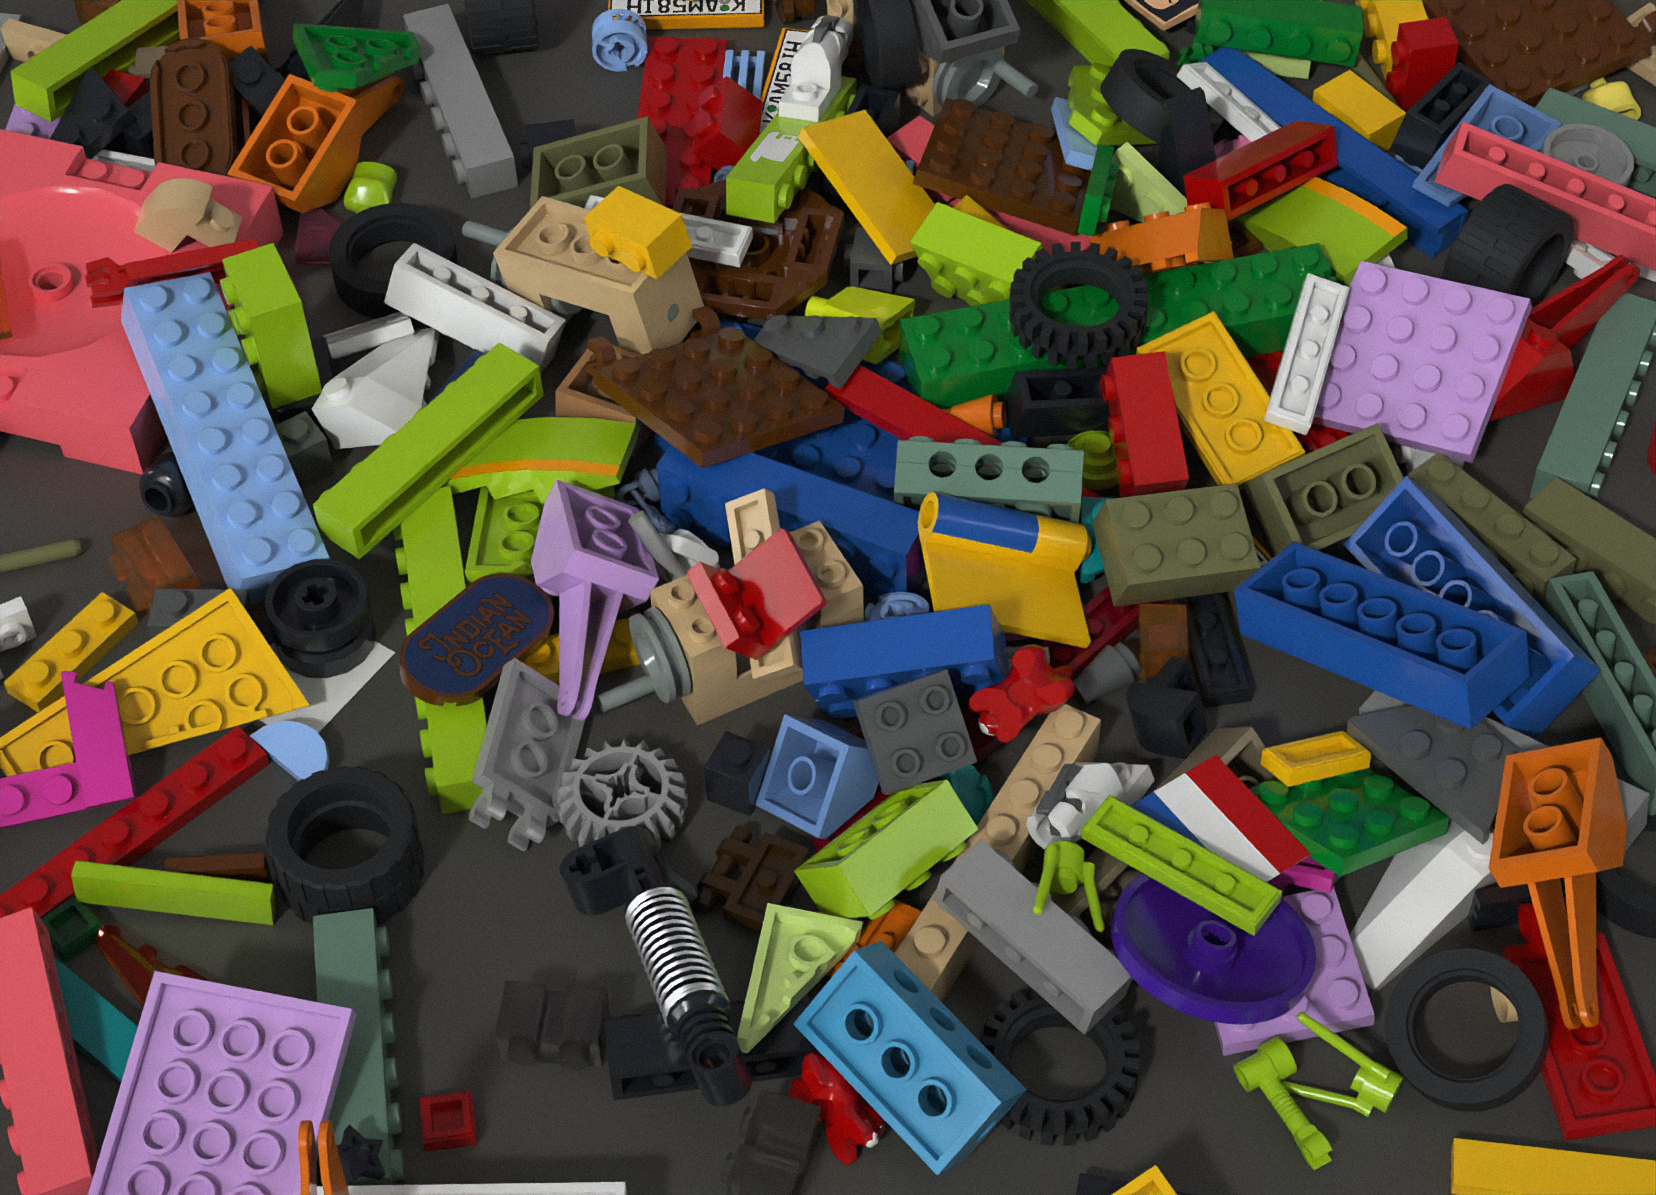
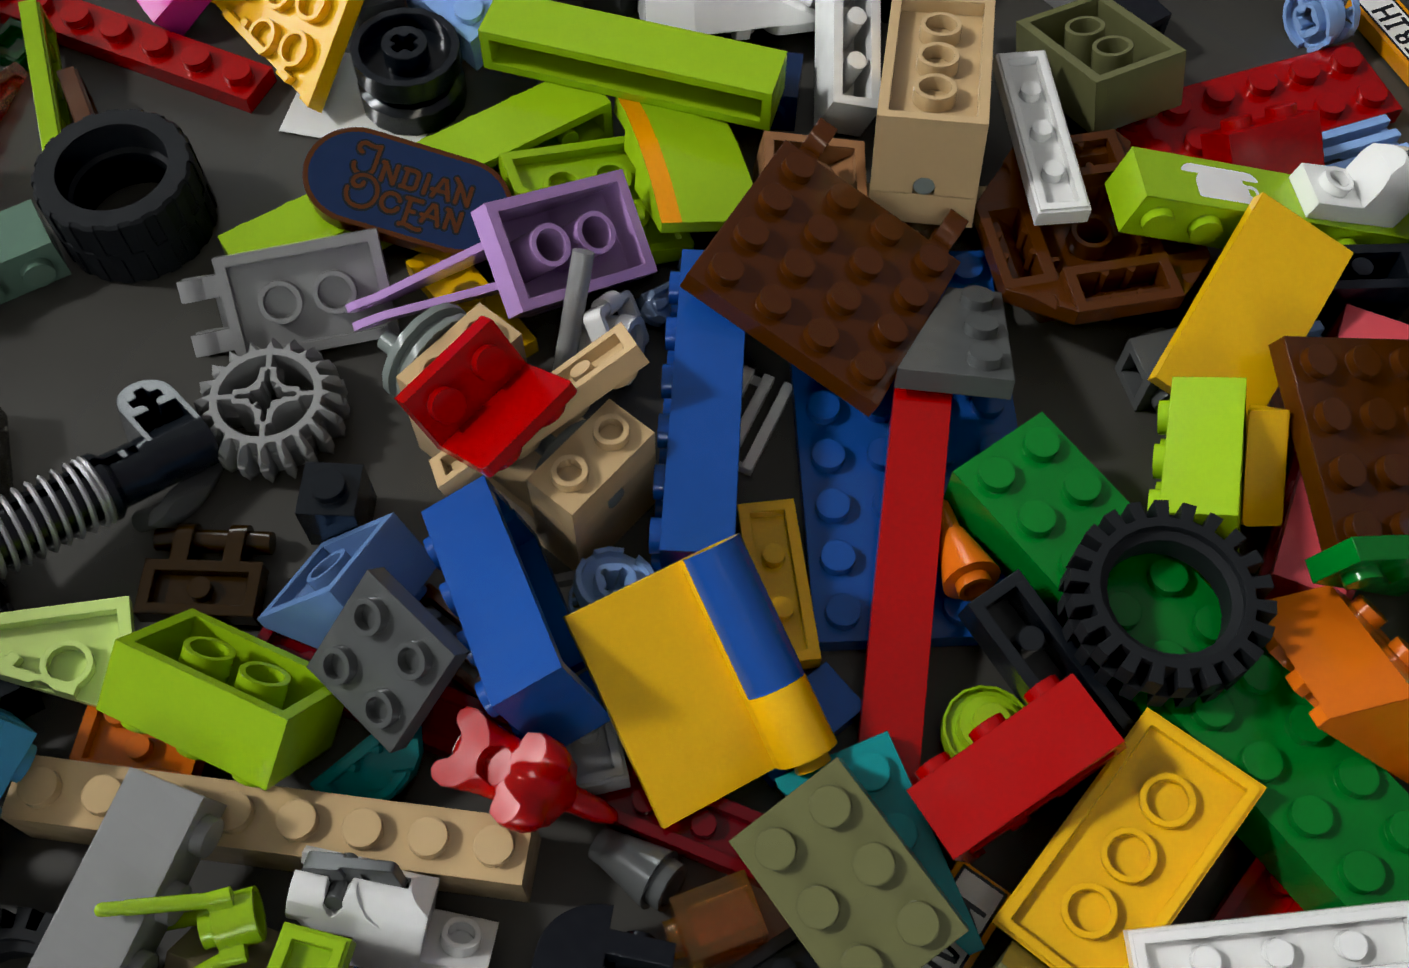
camera: 65 degrees right, 10 degrees up
(294, 747) = (260, 124): light blue tile -> none
(637, 232) = (952, 77): yellow brick -> none
(867, 303) = (1058, 381): neon yellow torso -> none
(1047, 491) = (823, 610): sand green brick -> none

